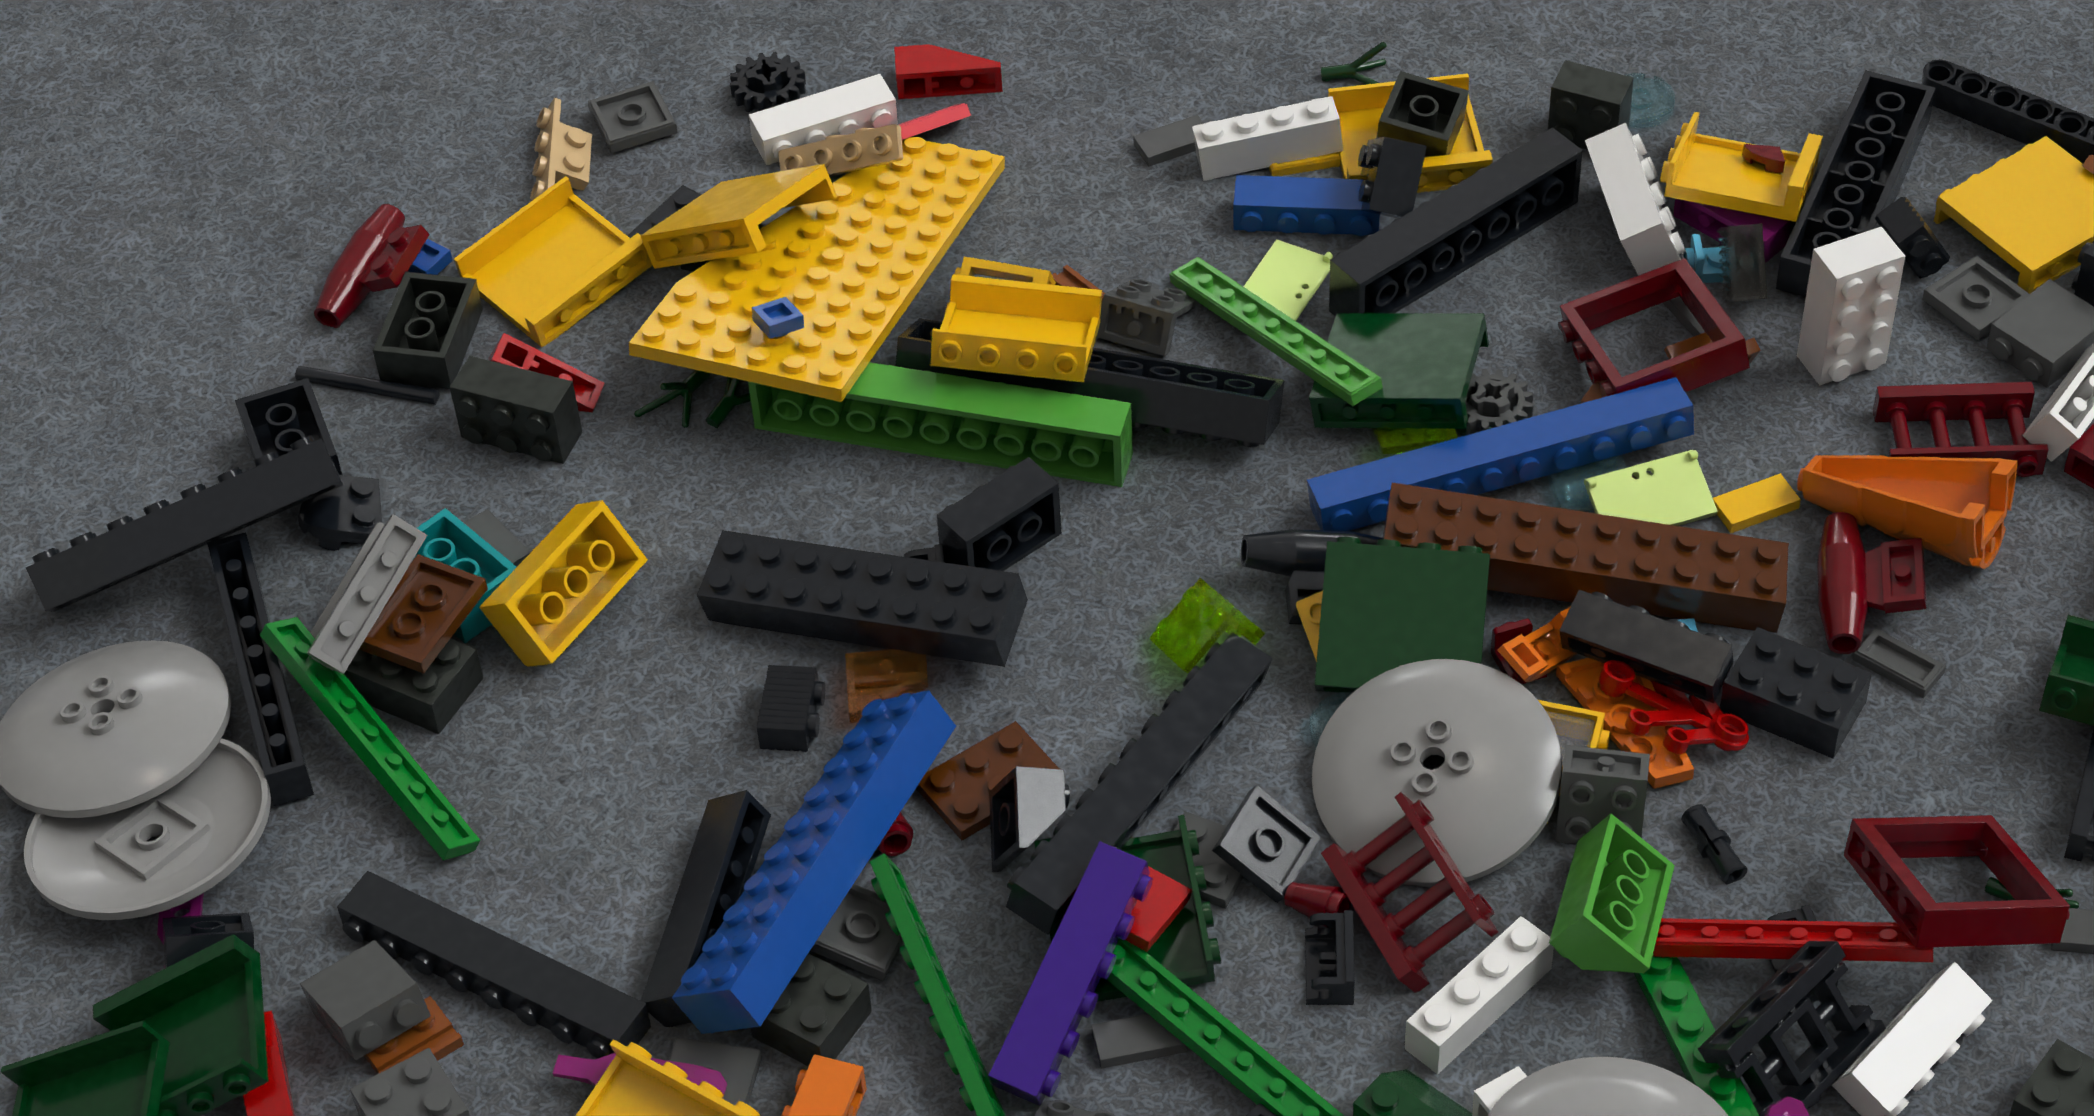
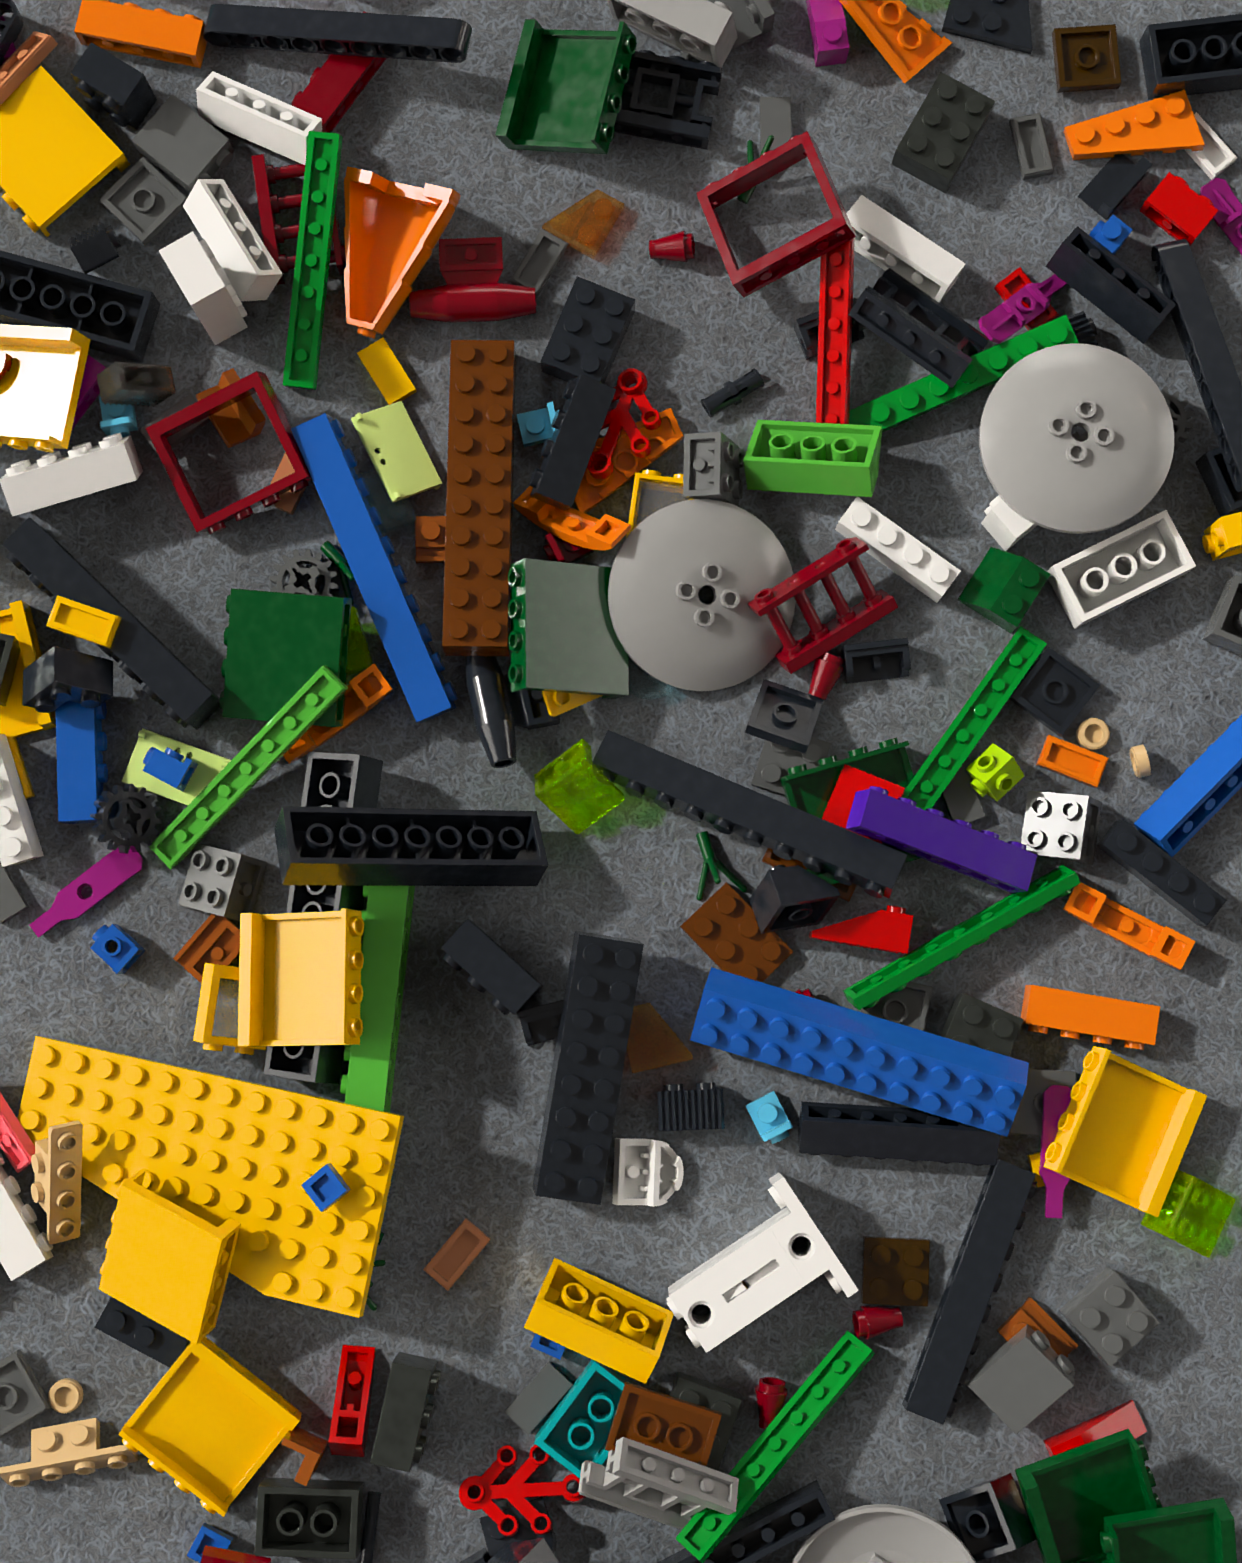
camera: 100 degrees left, 35 degrees up
(405, 479) = (515, 1491): none -> red plant
(429, 752) = (770, 1399): none -> dark red cone
(482, 864) = (875, 1320): none -> dark red cone
(490, 321) = (308, 1445): none -> dark orange panel
(537, 900) = (895, 1271): none -> dark brown plate
(582, 748) = (756, 1273): none -> white brick
(618, 163) = (65, 1395): none -> tan tile
(676, 486) = (457, 1254): none -> nougat tile
(725, 658) = (645, 1172): none -> white slope
(765, 785) = (769, 1118): none -> medium azure bracket
(967, 922) = (880, 930): none -> red slope
(1087, 224) = (127, 952): none -> blue brick
(1096, 760) = (713, 863): none -> dark green plant
(1150, 431) = (409, 847): none -> black brick
(1157, 1068) = (994, 773): none -> lime brick
(1171, 221) = (101, 877): none -> magenta piece
(1245, 230) = (121, 807): none -> black gear
(1282, 268) = (169, 768): none -> blue brick
(1344, 445) = (361, 696): none -> orange slope
(1454, 182) = (83, 621): none -> yellow tile
(1896, 425) = (312, 260): none -> green plate
(1919, 795) = (673, 247): none -> dark red cone
(1921, 356) = (232, 239): none -> white brick
(1954, 715) = (587, 222): none -> clear orange wing

